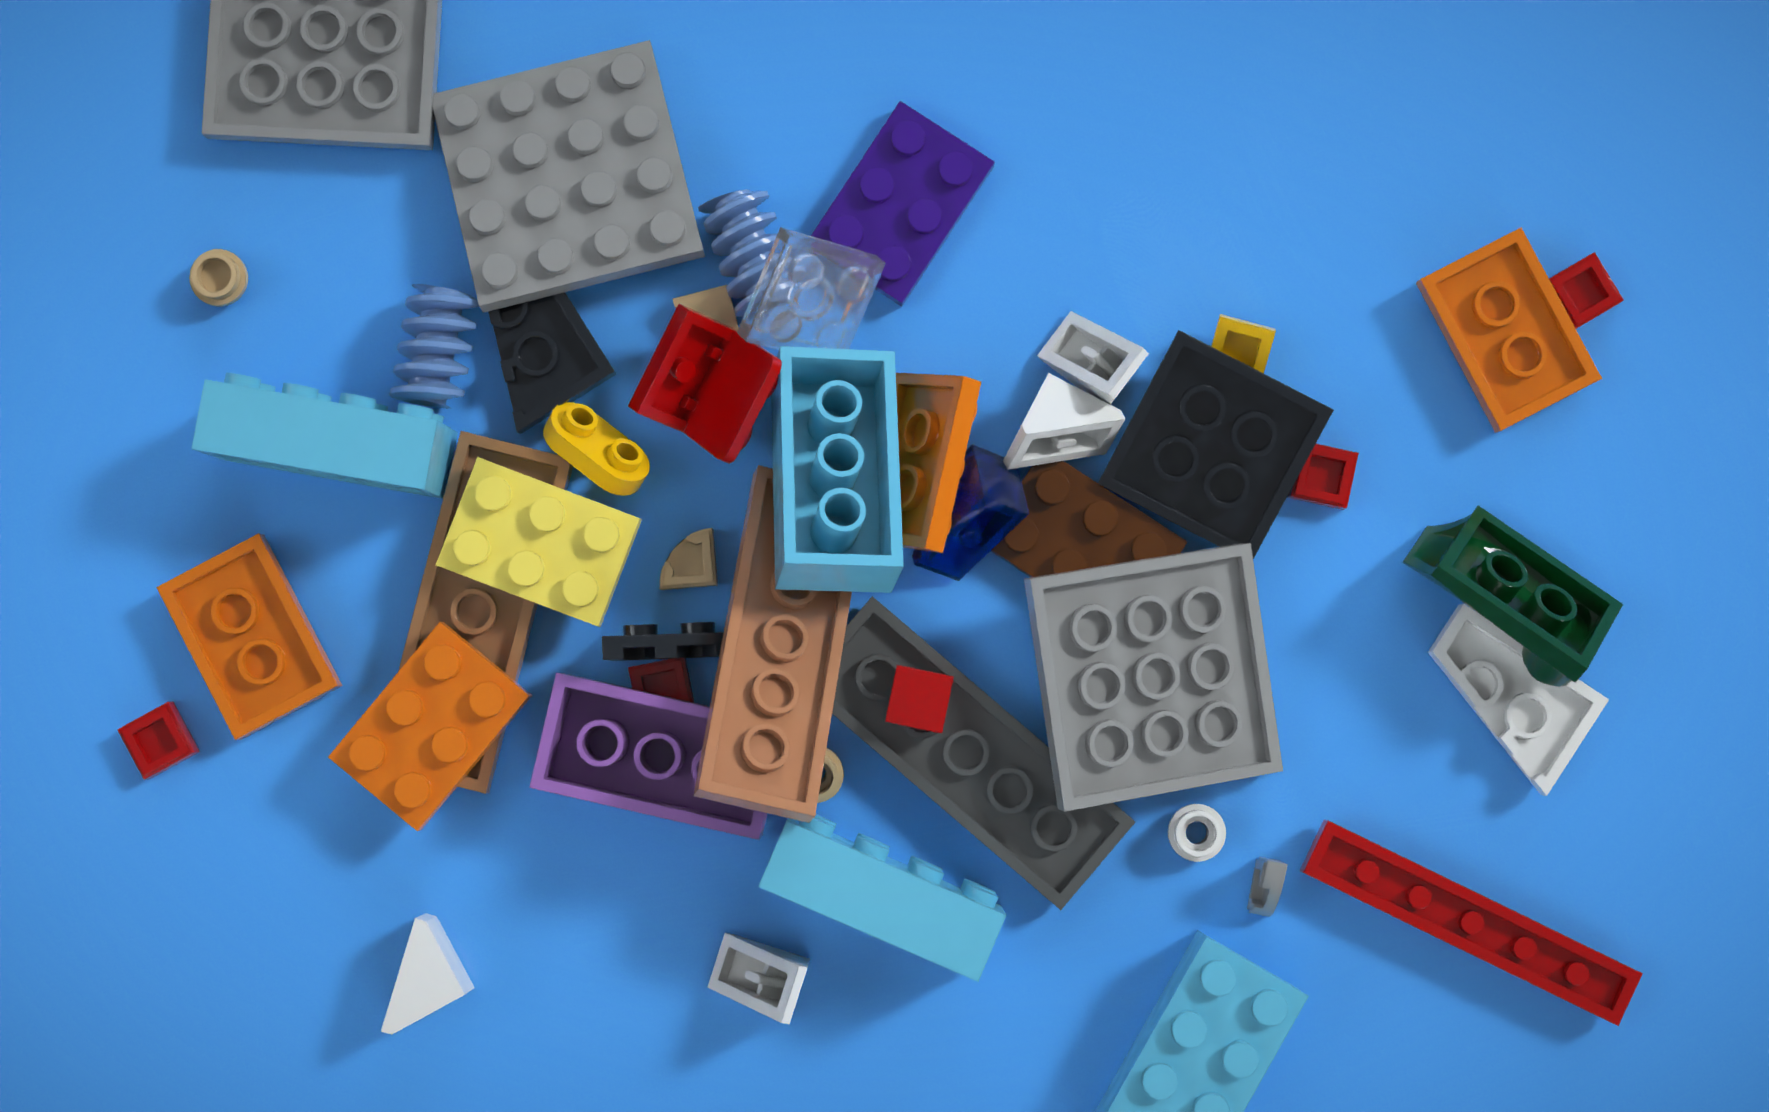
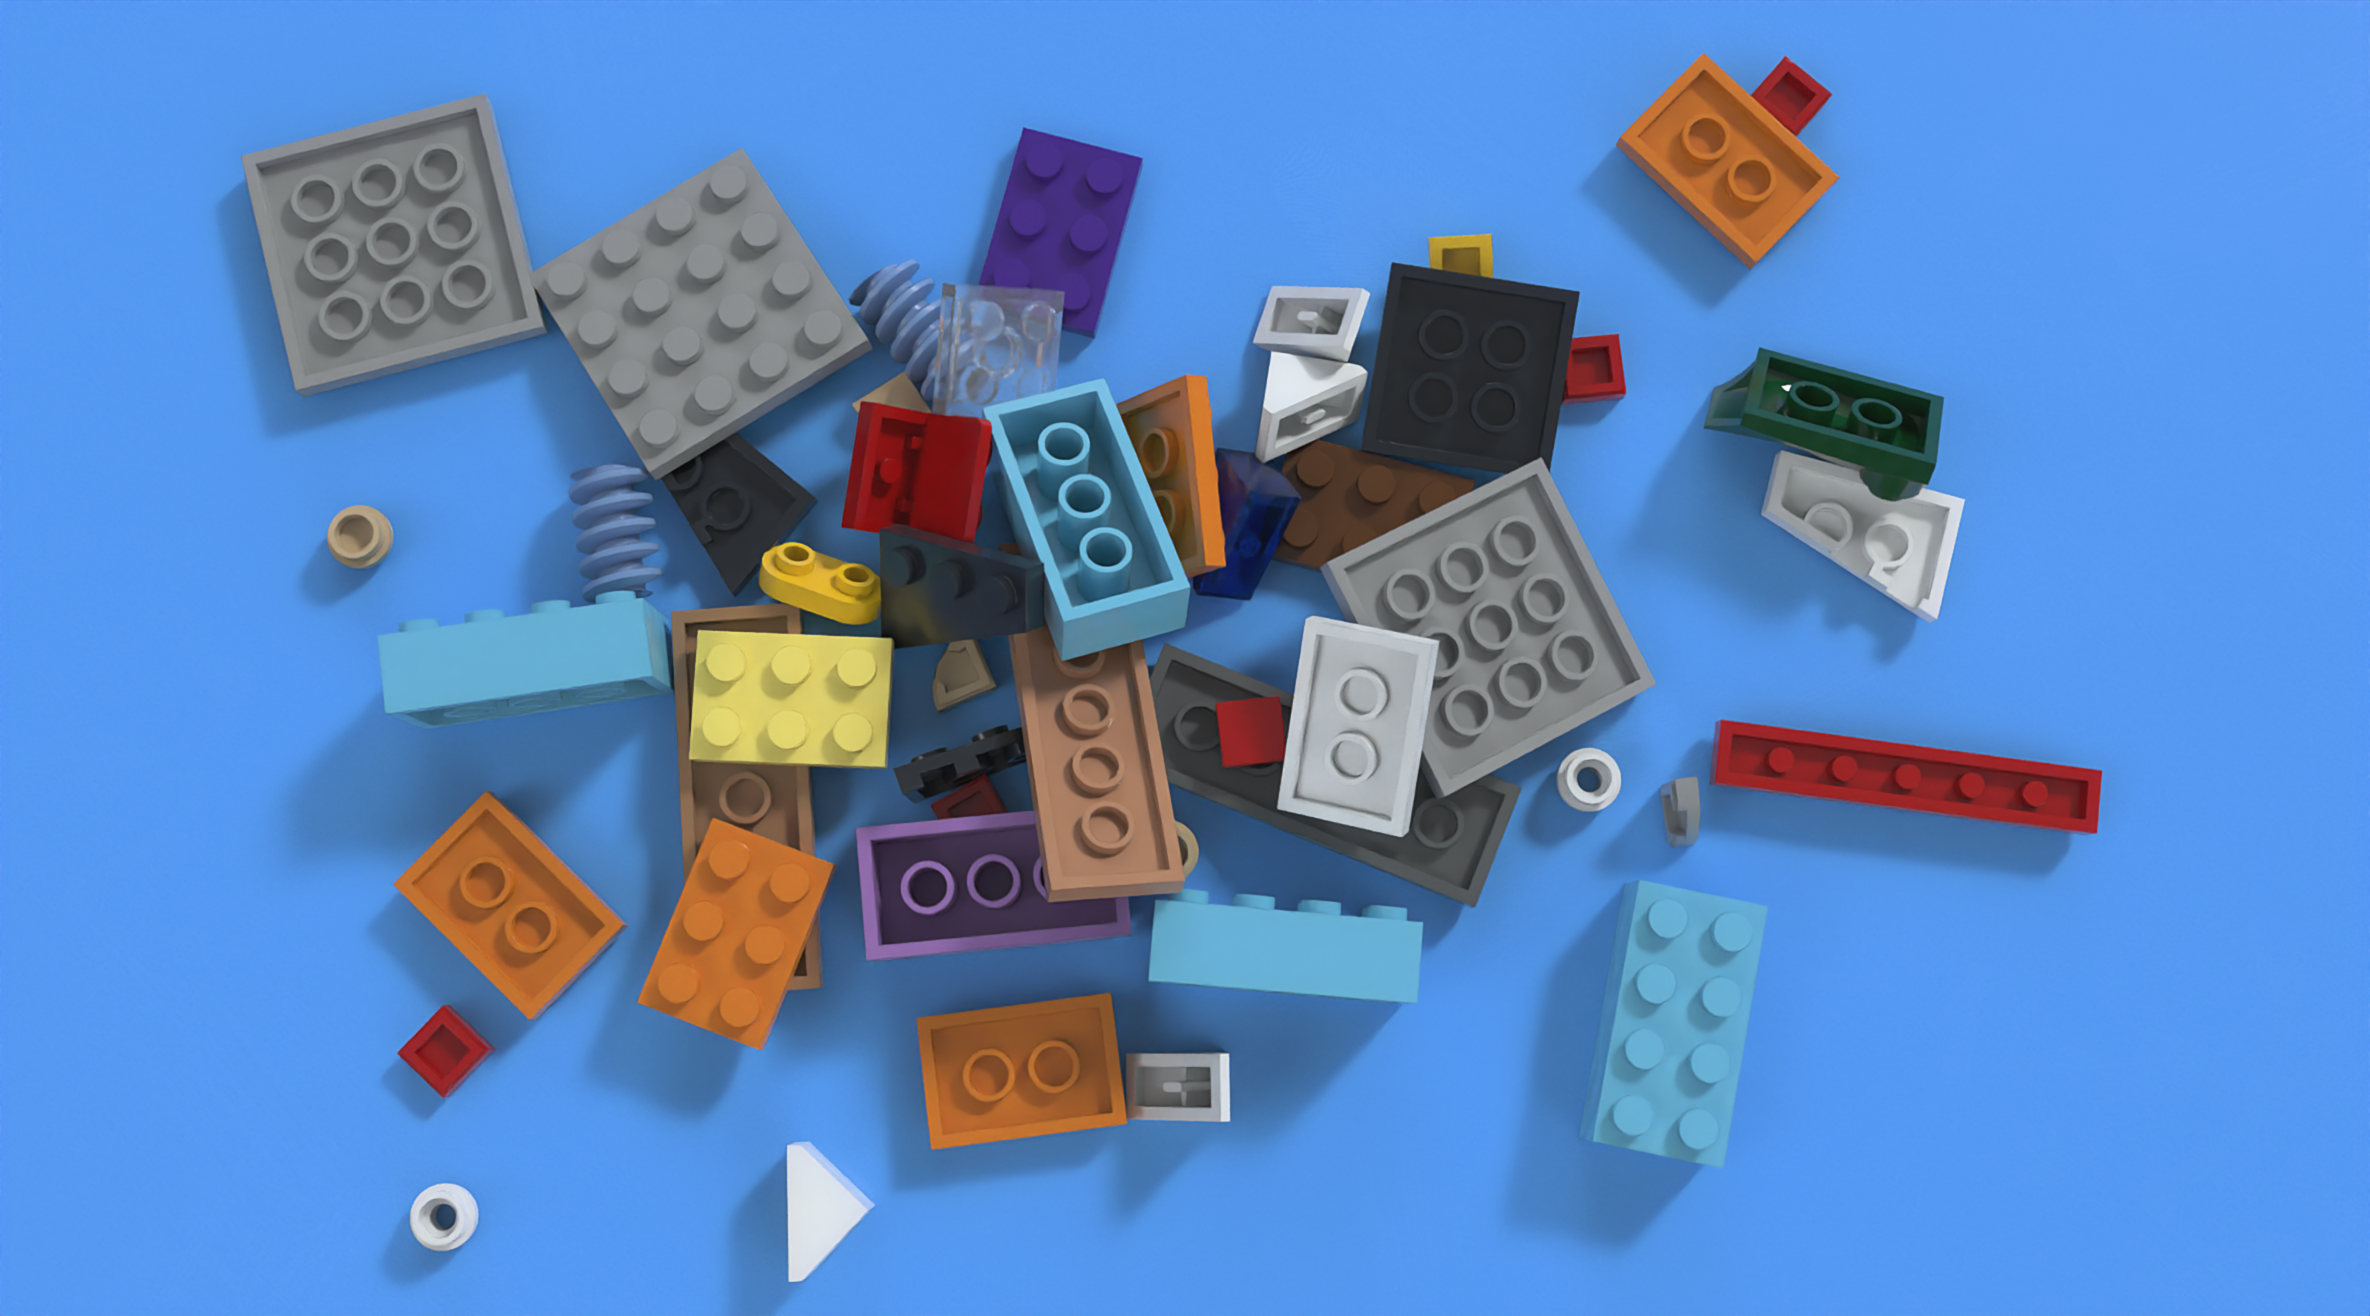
camera: 25 degrees left, 5 degrees down
(98, 878) = (424, 1221): none -> white plate
(632, 919) = (1021, 1071): none -> orange plate
(704, 496) = (954, 589): none -> black wing
(1009, 727) = (1357, 725): none -> white plate

